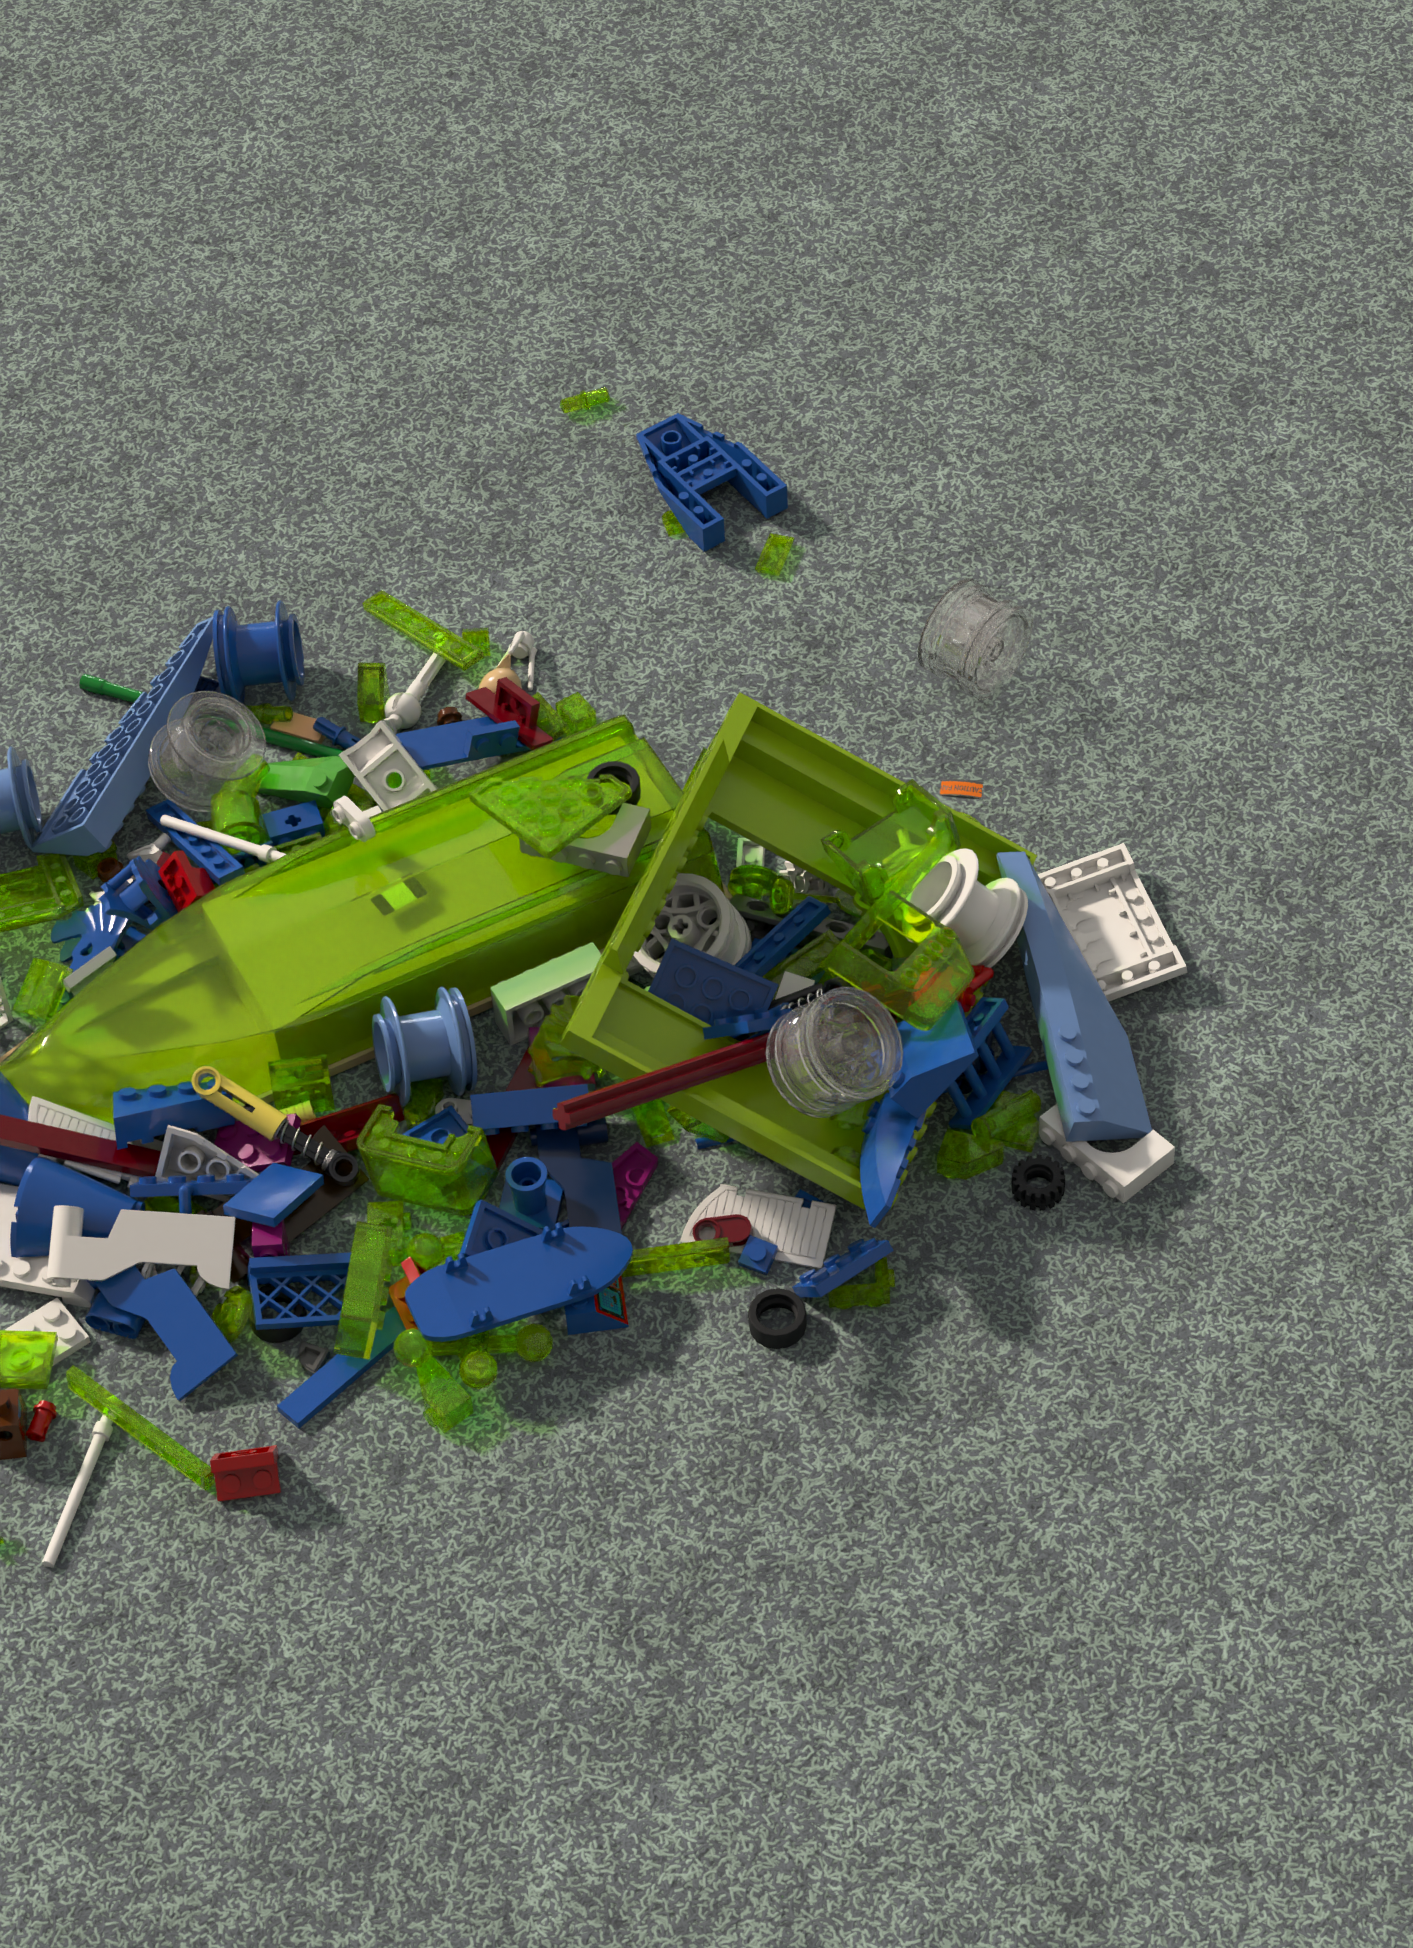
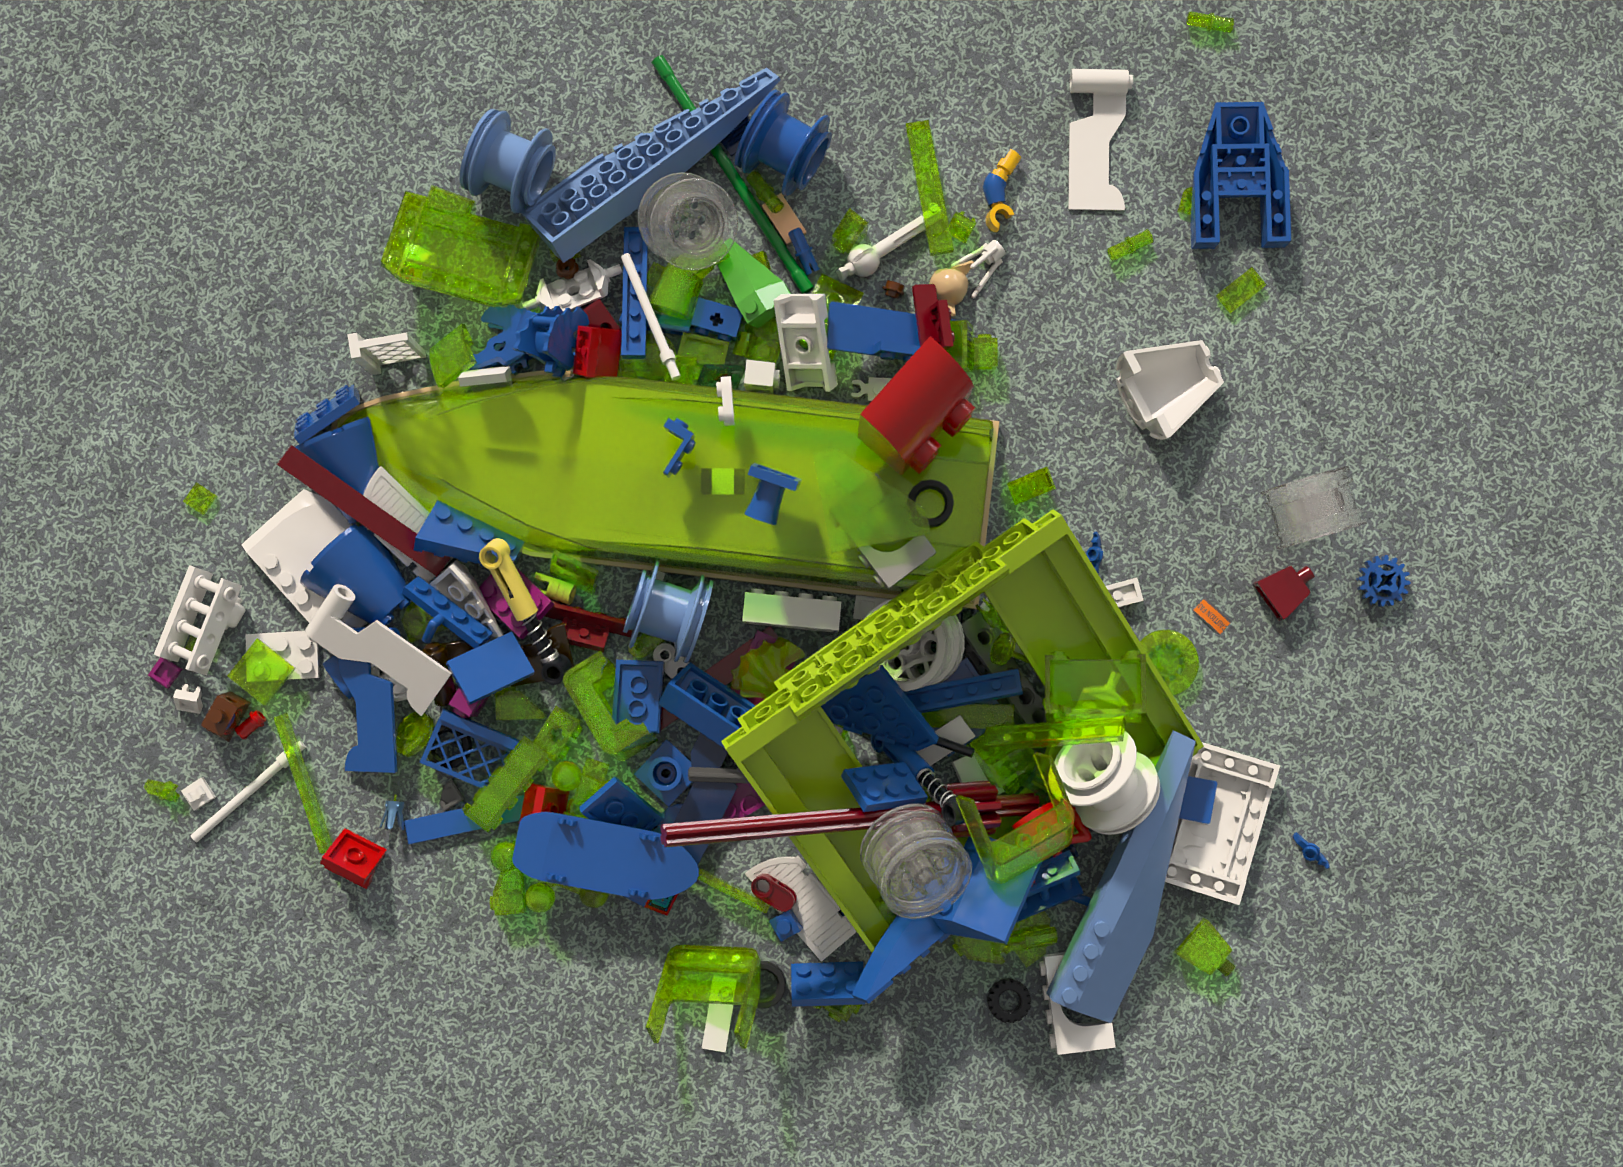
camera: 35 degrees right, 35 degrees up
(24, 1519) = (198, 793): none -> white tile
(257, 1399) = (392, 808): none -> flat silver piece
(325, 1233) = (516, 706): none -> clear neon green slope
(329, 866) = (680, 430): none -> blue bracket
(448, 845) = (769, 493): none -> blue plant
(487, 604) = (995, 186): none -> yellow piece
(540, 689) = (915, 407): none -> red brick
(546, 526) = (1091, 137): none -> white door
(589, 1160) = (722, 775): none -> dark grey axle
(646, 574) = (1130, 245): none -> clear neon green axle
(718, 1332) = (710, 977): none -> clear neon green windscreen
(753, 1375) = (717, 1027): none -> tile
(759, 643) = (1166, 384): none -> white cone
(1007, 728) = (1284, 590): none -> dark red torso
(1077, 915) = (1198, 800): none -> blue sticker
(1091, 673) = (1390, 589): none -> blue gear
(1191, 1027) = (1206, 949): none -> clear neon green torso
(1216, 901) = (1311, 851): none -> blue piece

